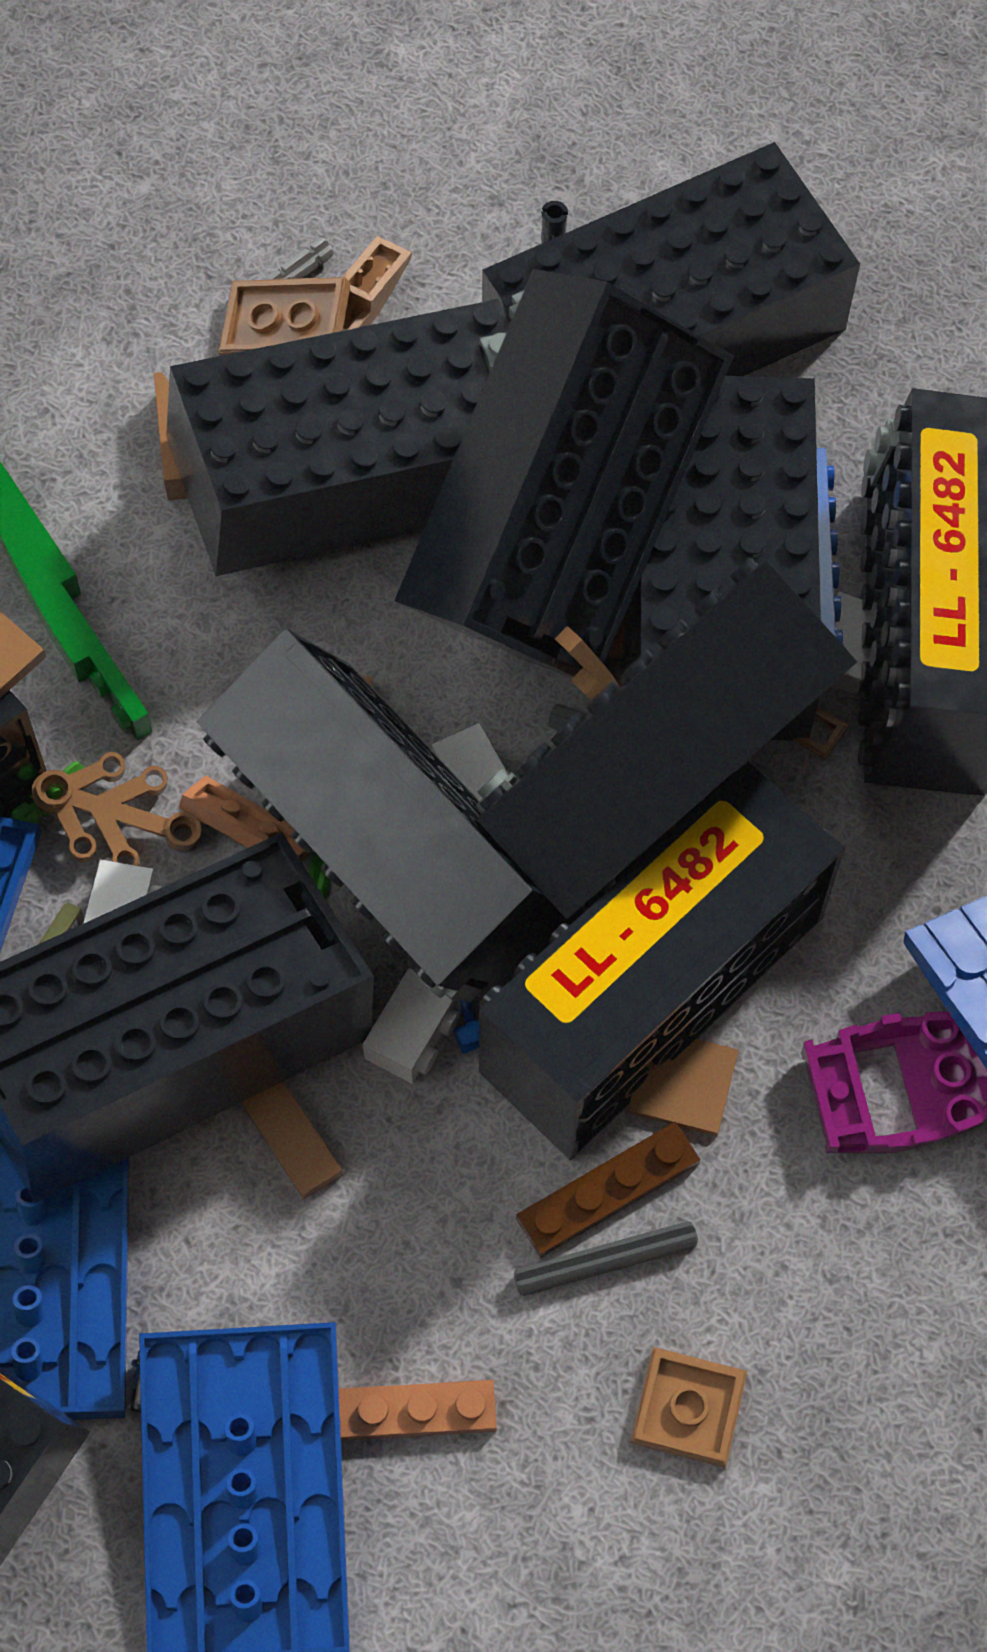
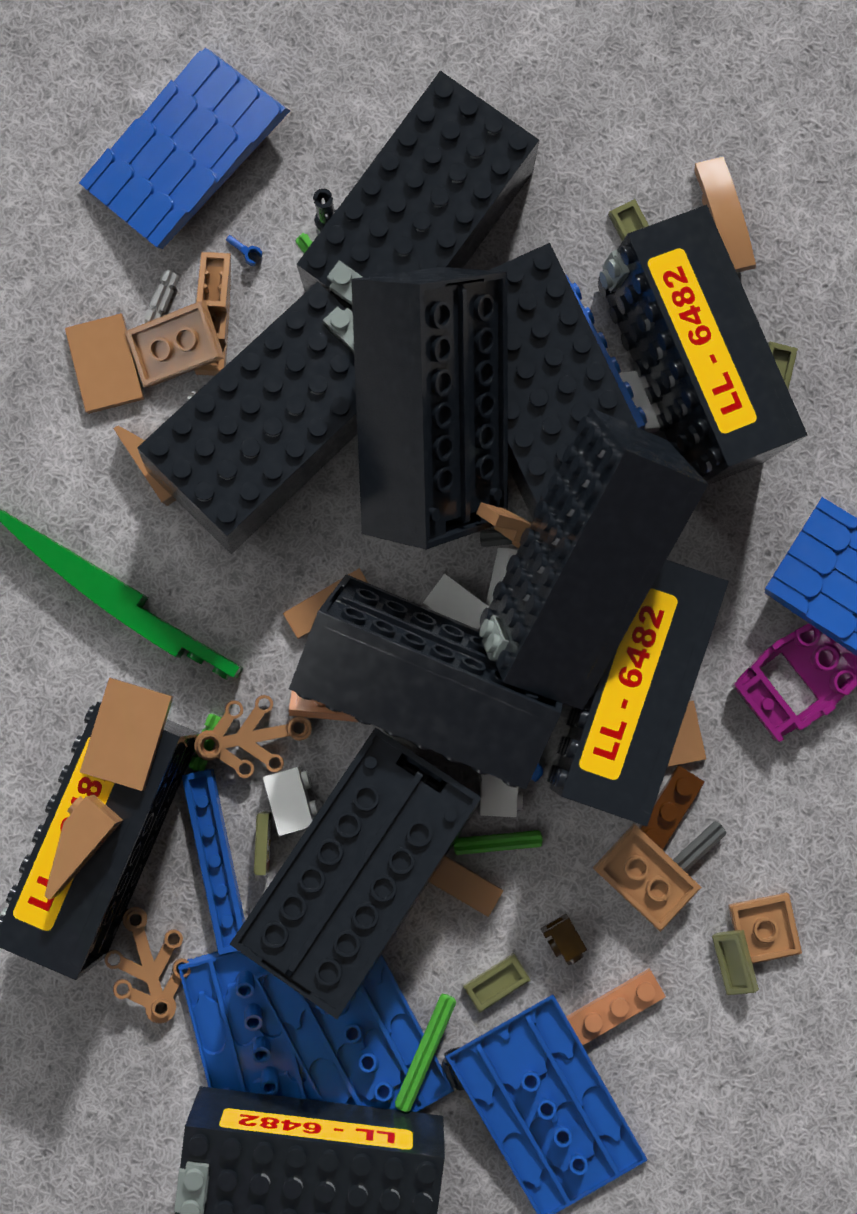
camera: 25 degrees left, 20 degrees up
(113, 1329) = (425, 1052): none -> bright green axle
(184, 307) = (104, 363): none -> medium nougat tile
(266, 1293) = (496, 982): none -> olive tile
(369, 1105) = (498, 842): none -> bright green axle
(392, 1274) = (564, 939): none -> dark brown brick
(419, 118) = (183, 147): none -> blue piece
(433, 261) = (244, 249): none -> blue hand
(552, 1241) = (647, 877): none -> medium nougat tile
(621, 1428) = (735, 962): none -> olive tile

